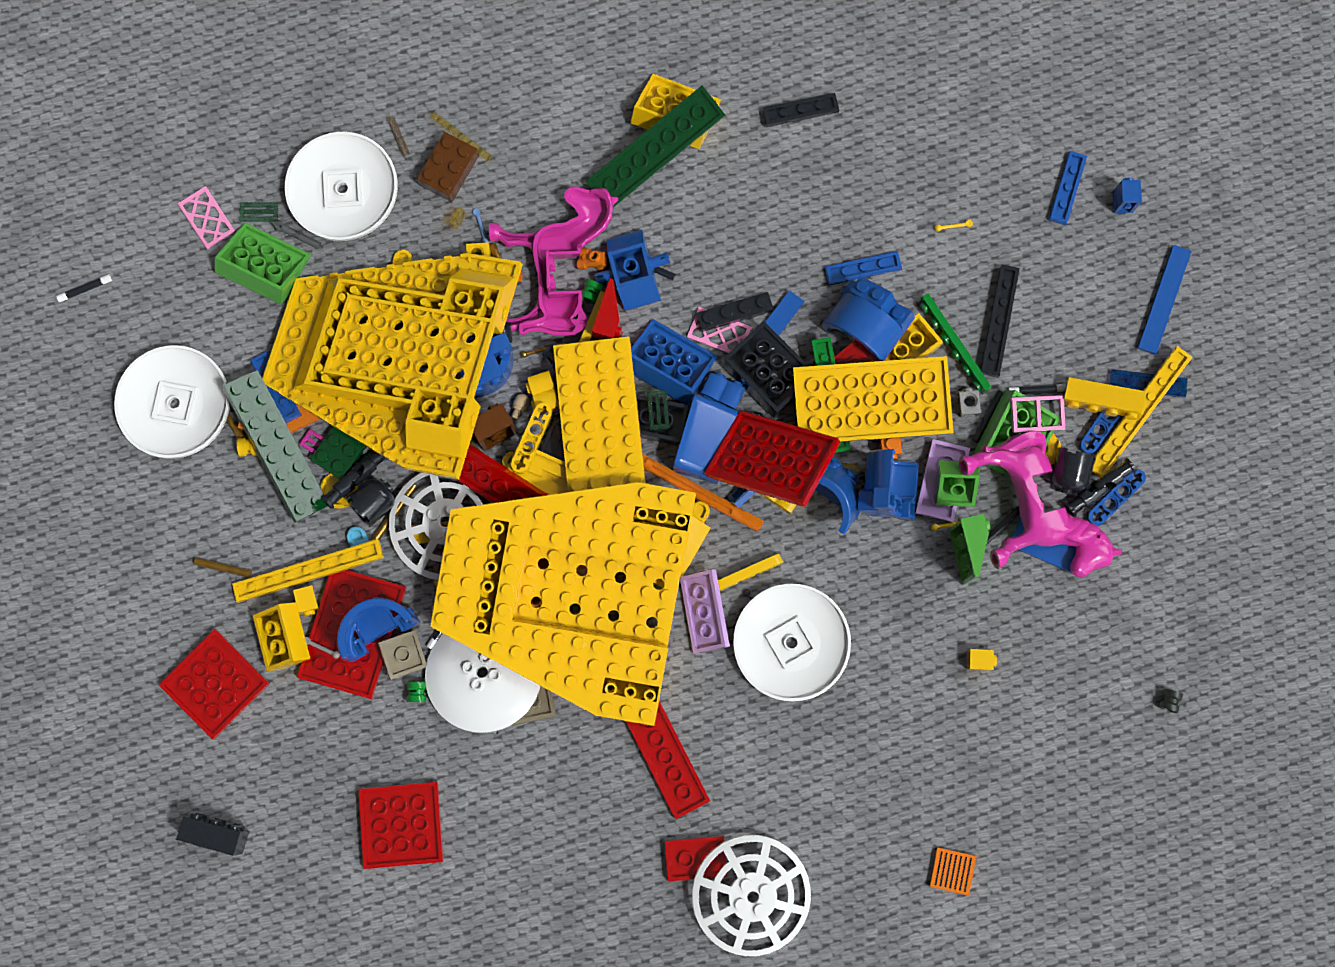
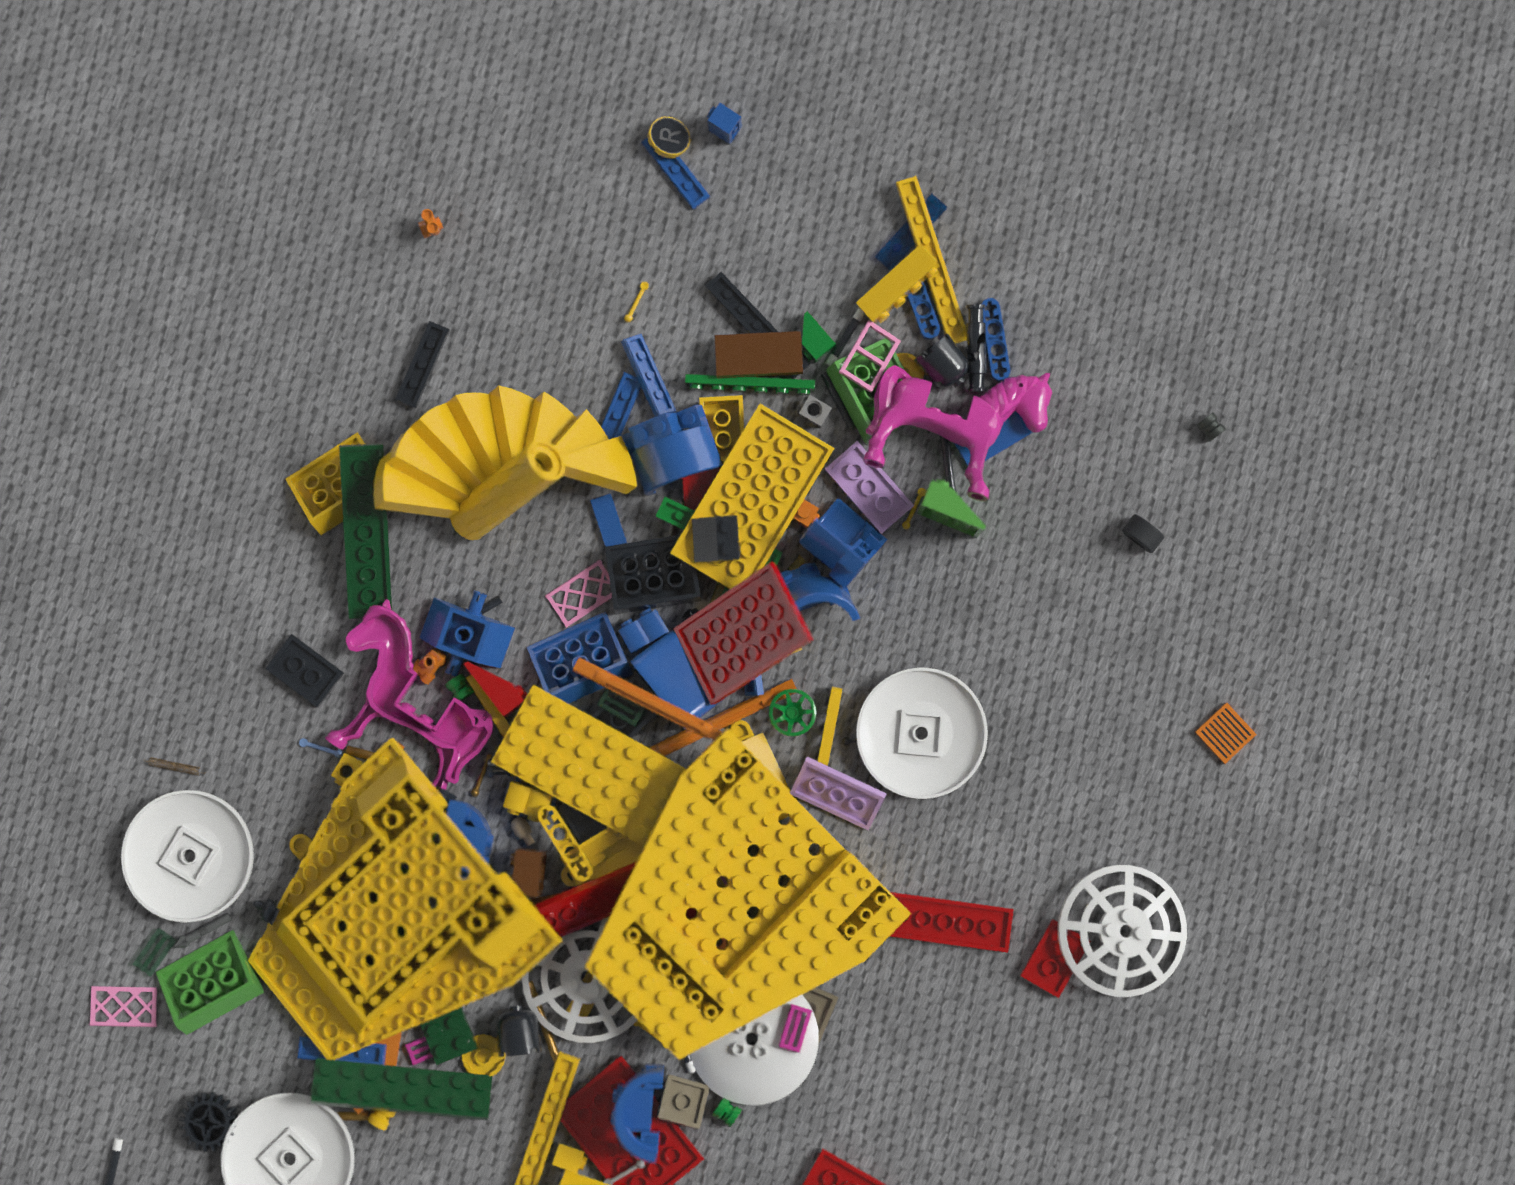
camera: 55 degrees left, 5 degrees up
(170, 326) = (189, 1120): none -> black gear
(339, 267) = (268, 910): none -> black piece
(347, 483) = (485, 1045): black piece -> none
(356, 536) = (540, 1069): medium azure tile -> none
(448, 167) = (240, 739): reddish brown brick -> none
(457, 133) = (217, 705): clear yellow bar -> none
(457, 218) = (298, 765): clear yellow tile -> none
(527, 177) = (304, 670): none -> black plate
(527, 693) = (808, 1014): none -> dark pink tile
(675, 422) = (646, 699): none -> orange piece
(734, 312) = (574, 566): black plate -> none
(740, 537) = (792, 712): none -> green wheel
(770, 192) = (493, 455): none -> yellow piece
(826, 392) = (715, 538): none -> black slope
(902, 47) = (429, 225): none -> orange plate
(909, 266) = (648, 375): none -> blue tile
(954, 487) = (883, 483): bright green slope -> none
(980, 334) = (758, 354): none -> reddish brown tile
(981, 659) = (1056, 571): yellow brick -> none
(1020, 368) = (815, 339): none -> green slope
(1055, 704) = (1143, 533): none -> black tyre
(1087, 166) = (668, 137): none -> black tile
(1164, 299) = (844, 159): blue tile -> none

